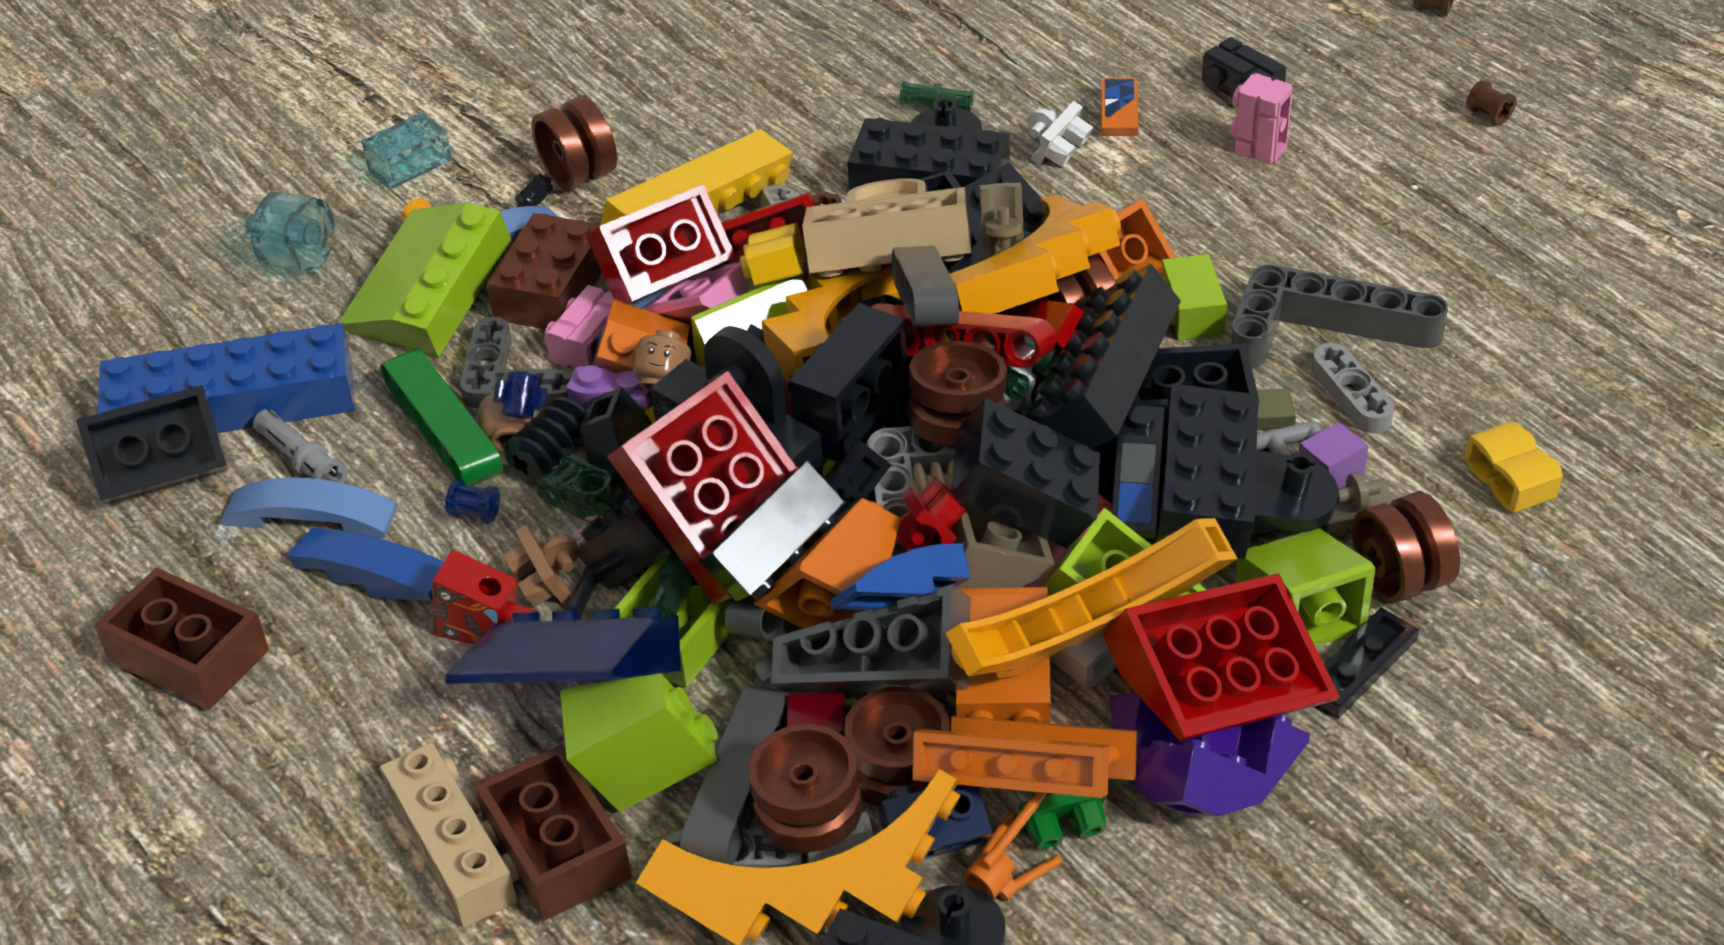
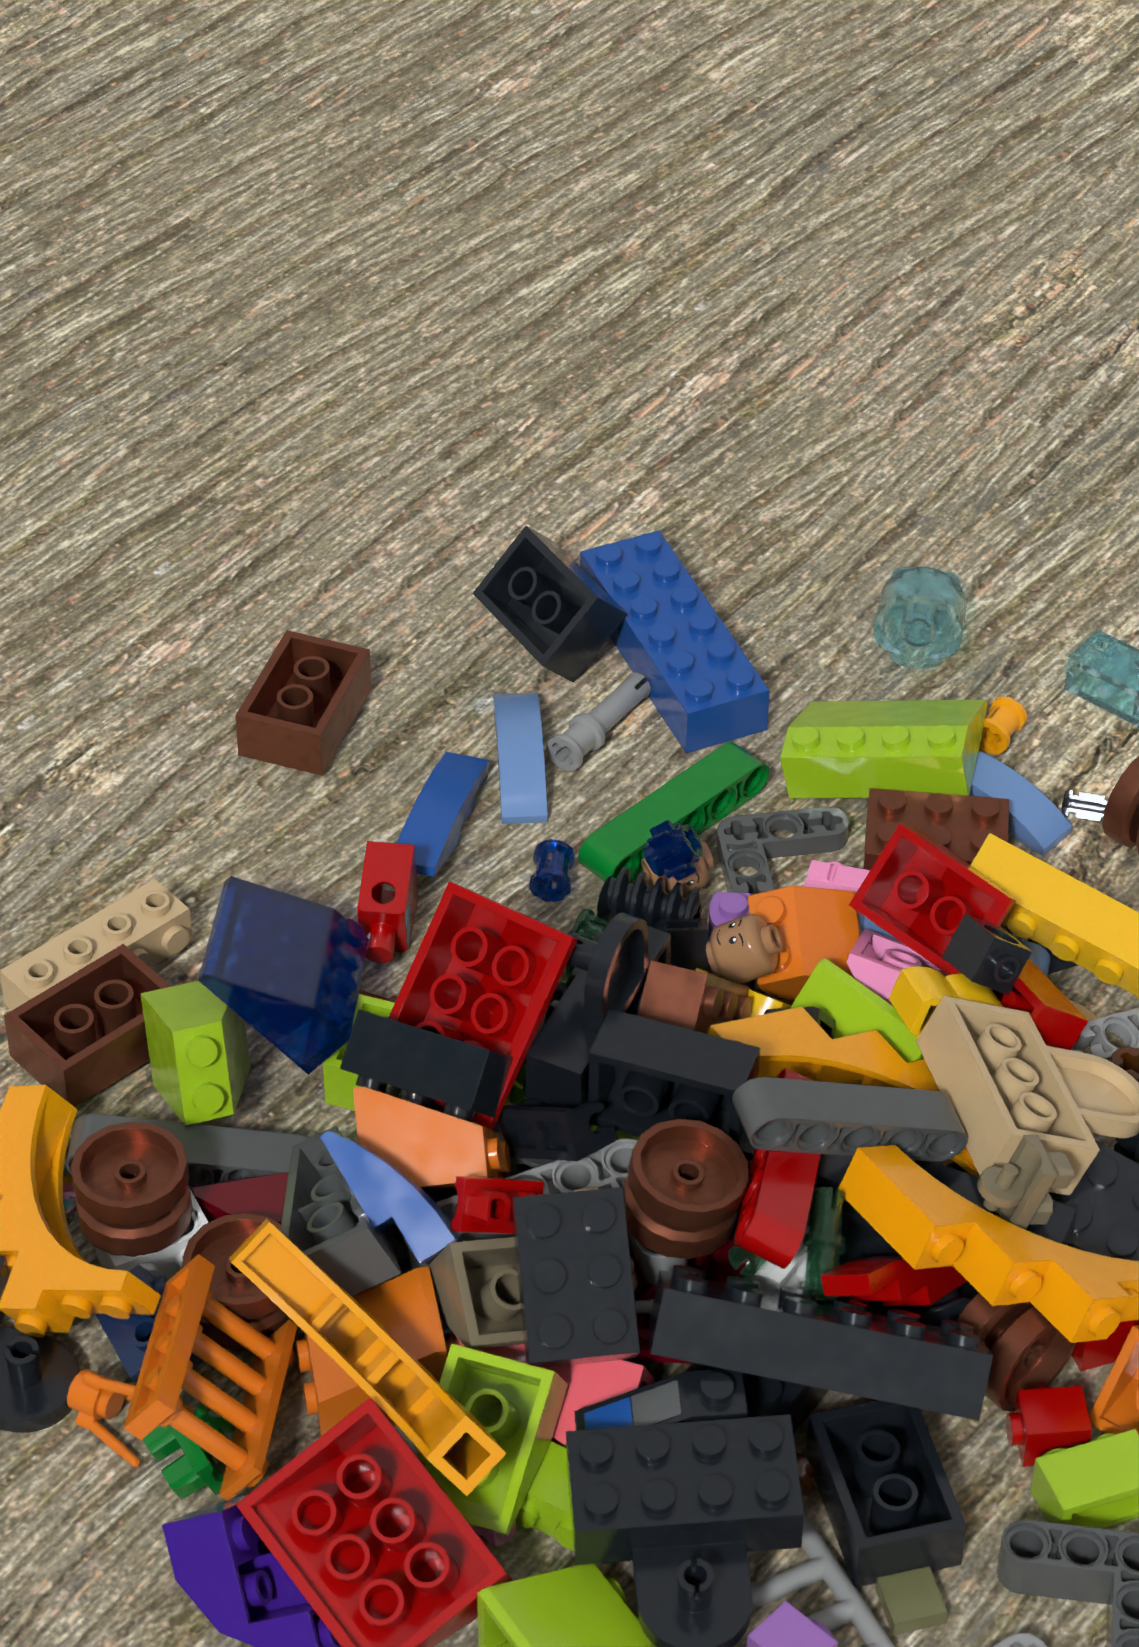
camera: 75 degrees right, 0 degrees up
(744, 214) = (986, 954): none -> black brick

